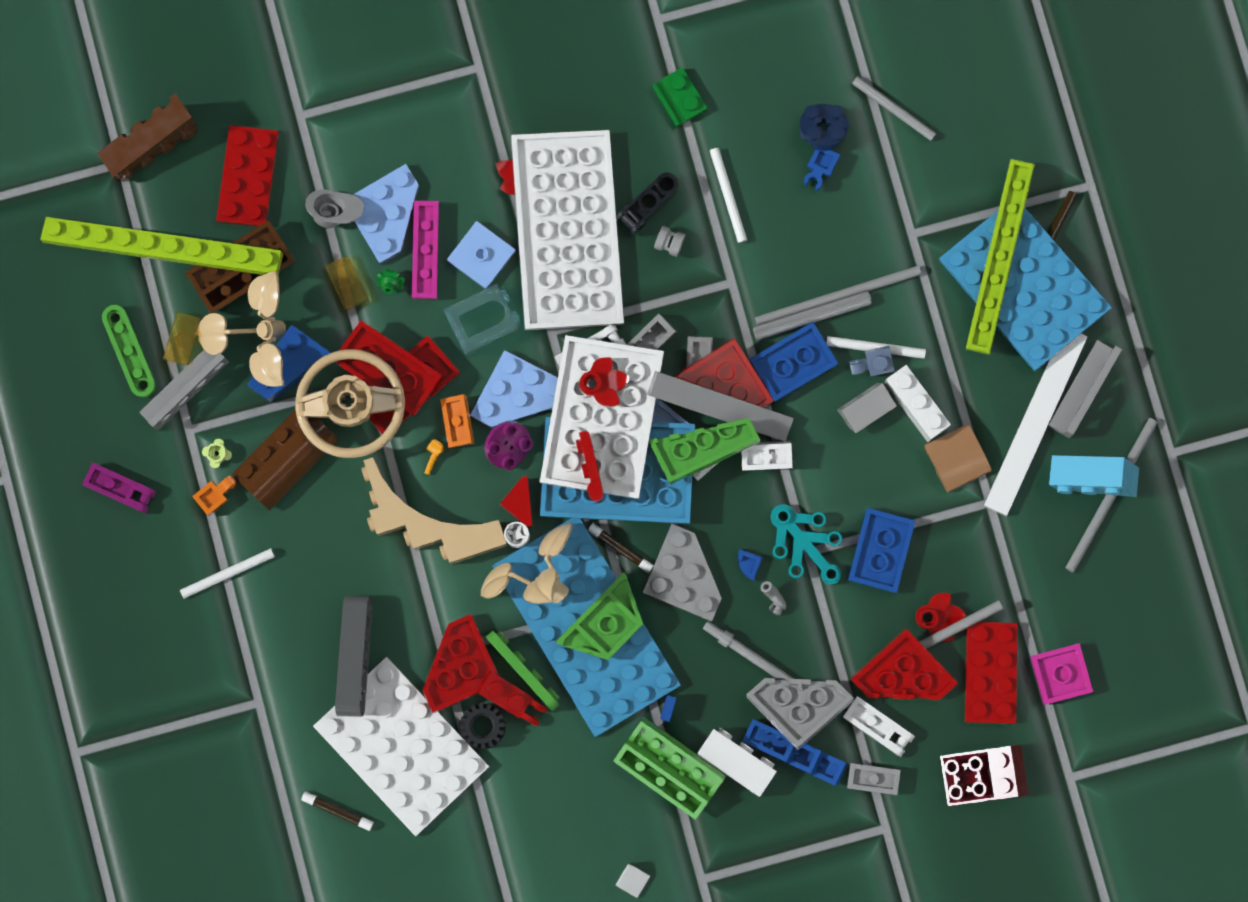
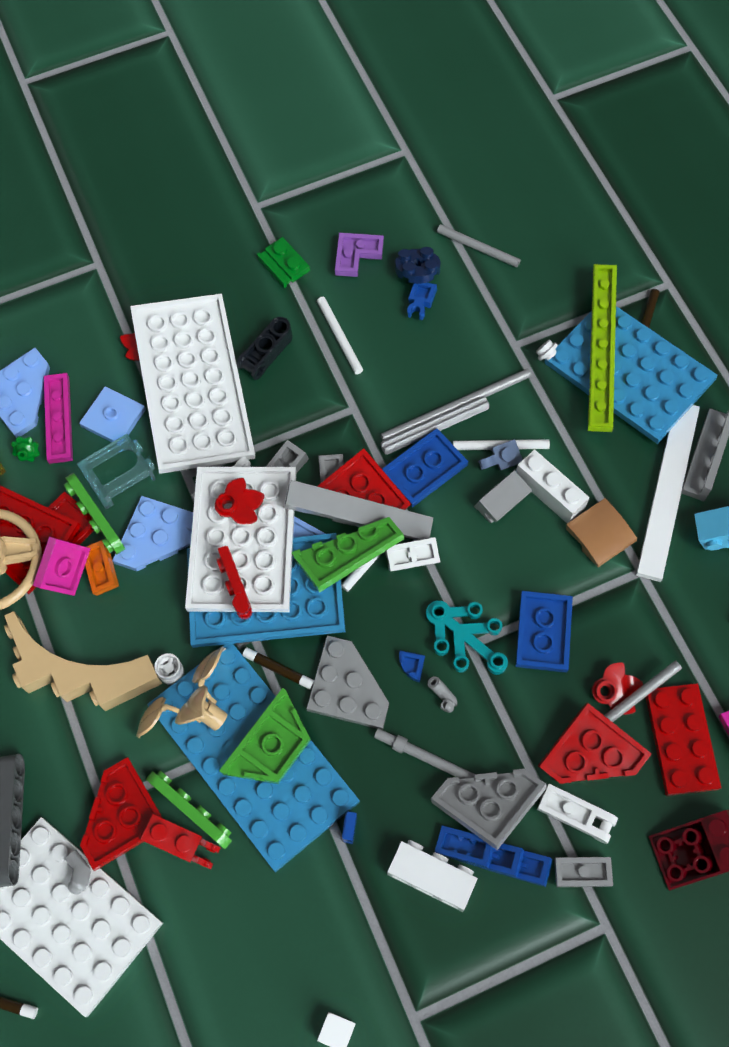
camera: 10 degrees left, 15 degrees down
(421, 714) = (80, 874): none -> light grey arm
(422, 420) = (61, 566): none -> dark pink plate
(436, 449) = (82, 599): light orange hand -> none
(452, 359) = (98, 521): none -> bright green plate
(471, 715) = (134, 873): black tyre -> none
(515, 436) = (143, 590): magenta plate -> none
(519, 503) = (168, 635): red slope -> none
(664, 238) = (289, 378): light grey wheel -> none
(669, 768) = (360, 893): bright green brick -> none
(755, 93) = (352, 248): none -> medium lavender plate
(942, 249) = (546, 350): none -> white plate

